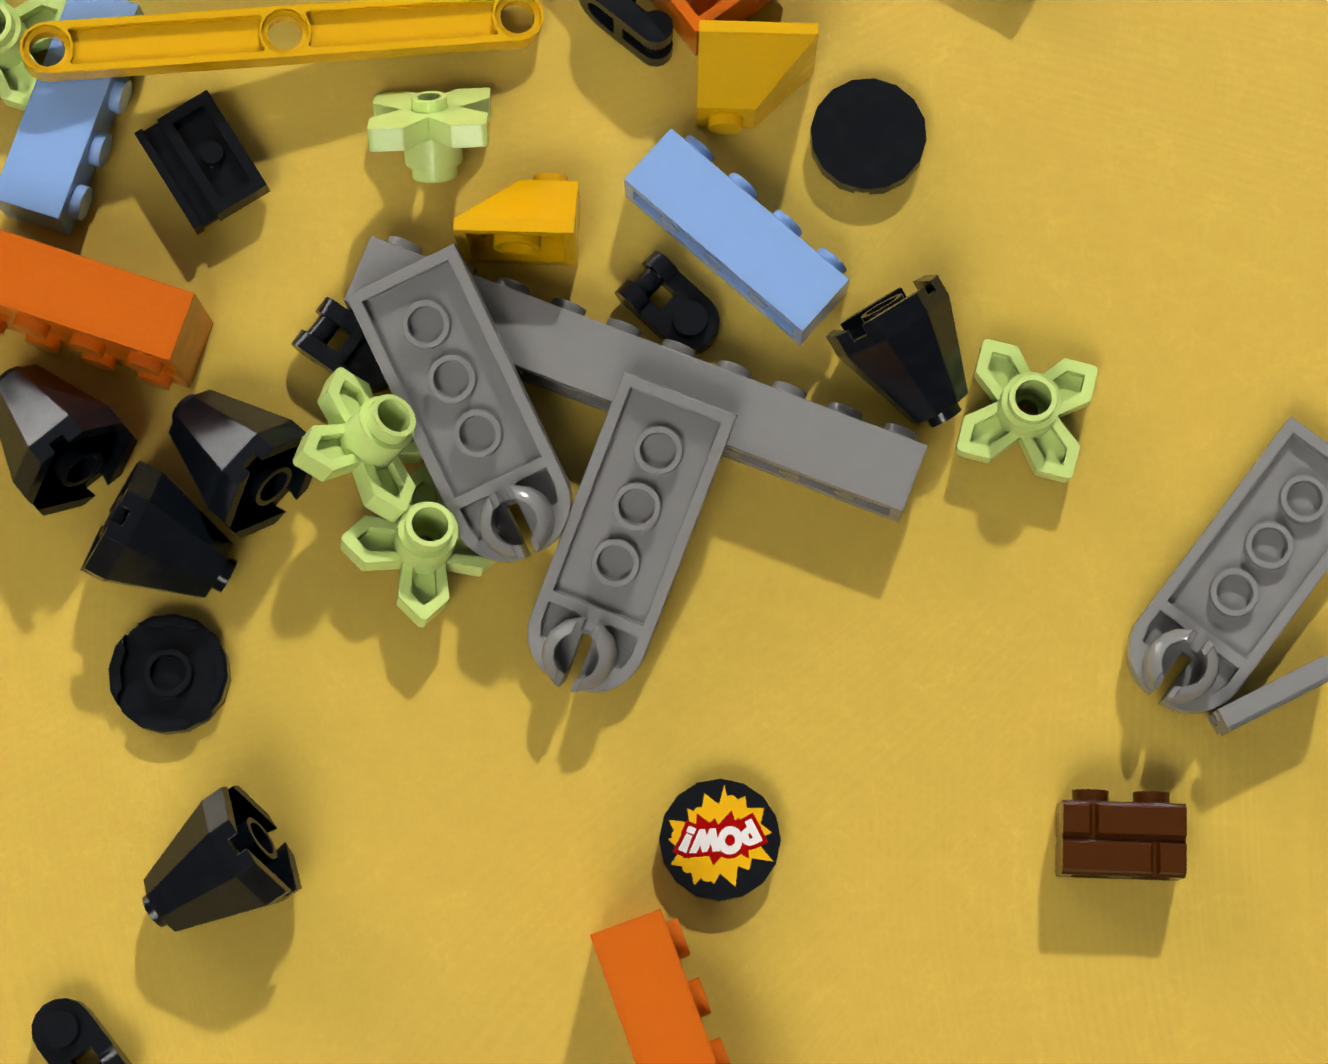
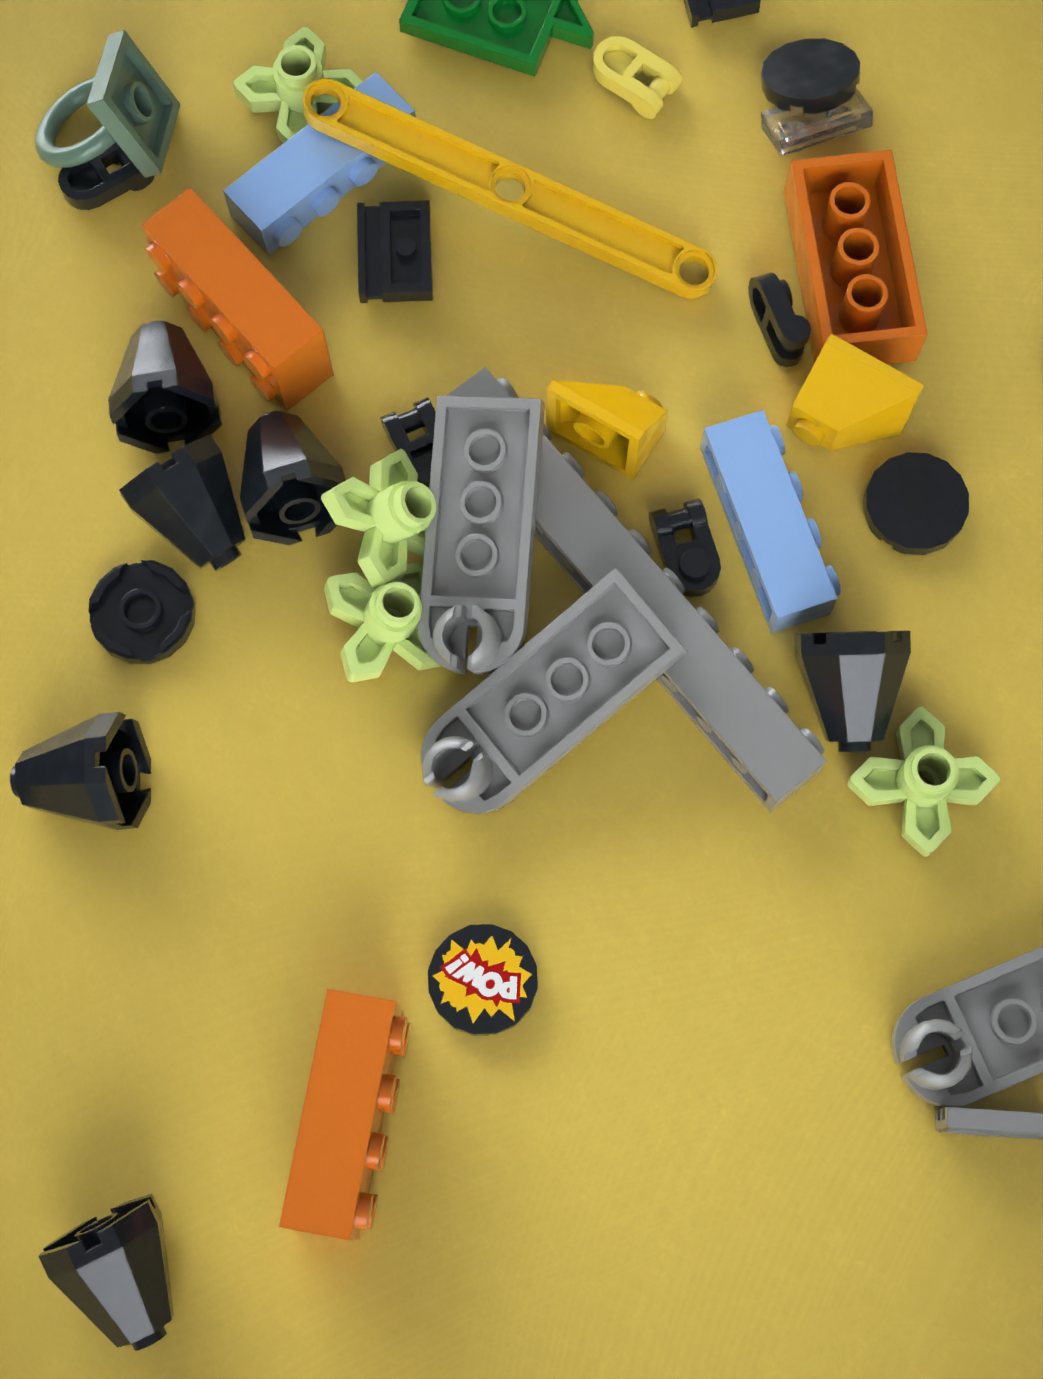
camera: 30 degrees right, 5 degrees down
(431, 128) = (578, 315): yellowish green plant -> none
(1121, 838) = (807, 1167): reddish brown brick -> none

